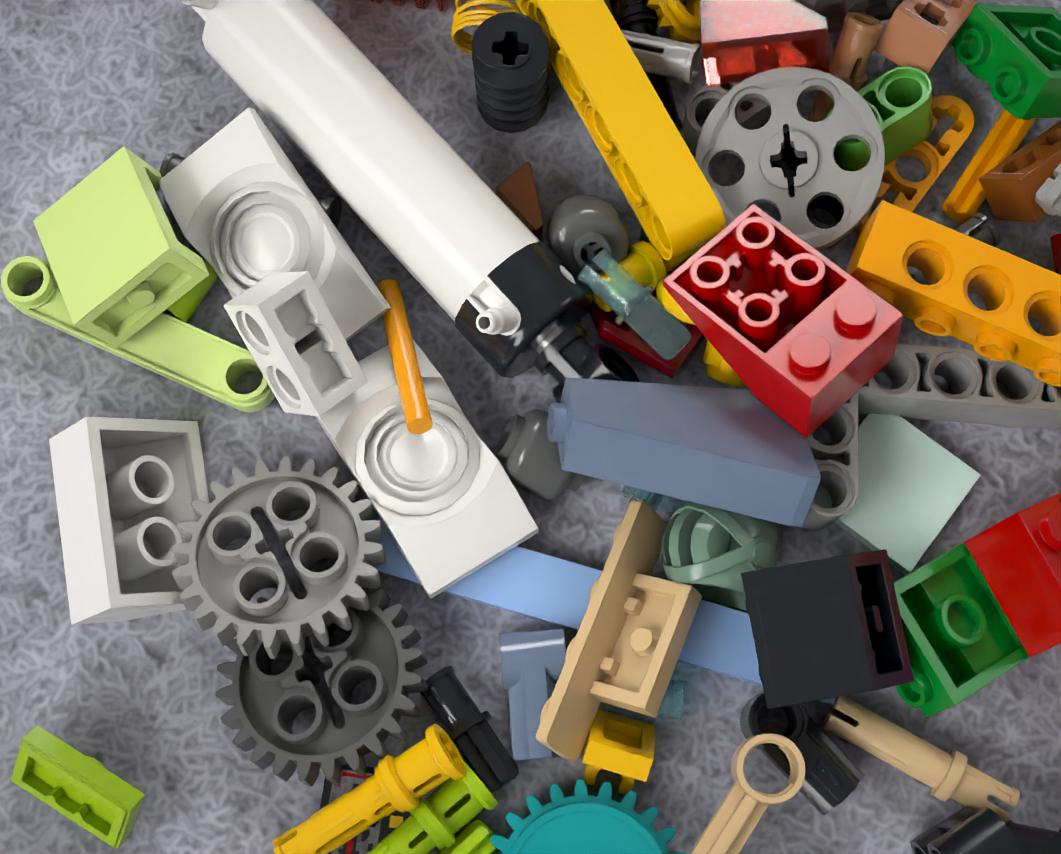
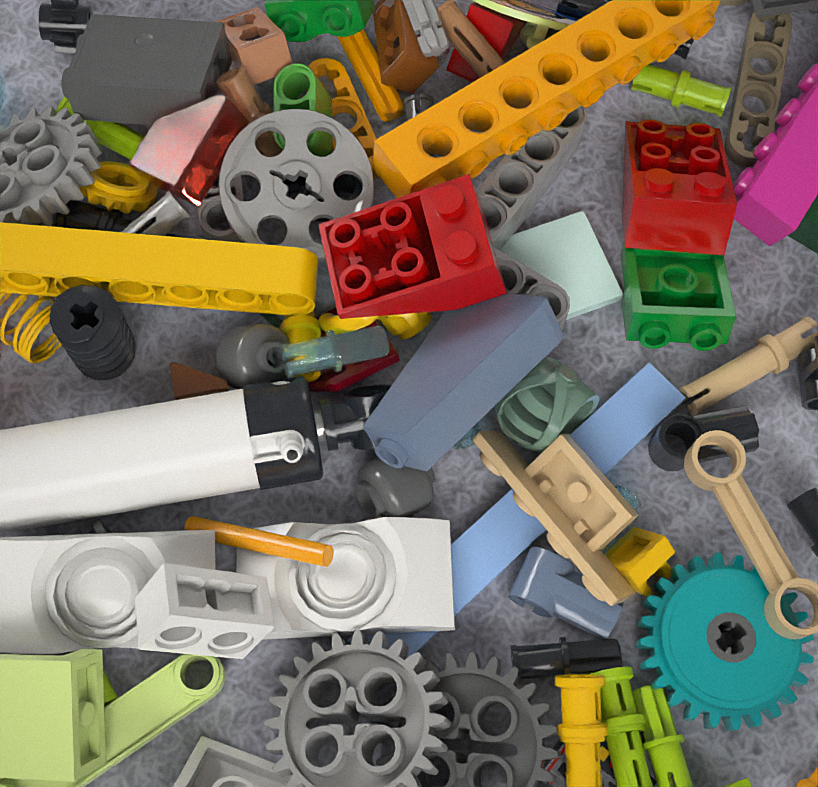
camera: 65 degrees left, 5 degrees down
(826, 628) = (642, 363): black slope -> none

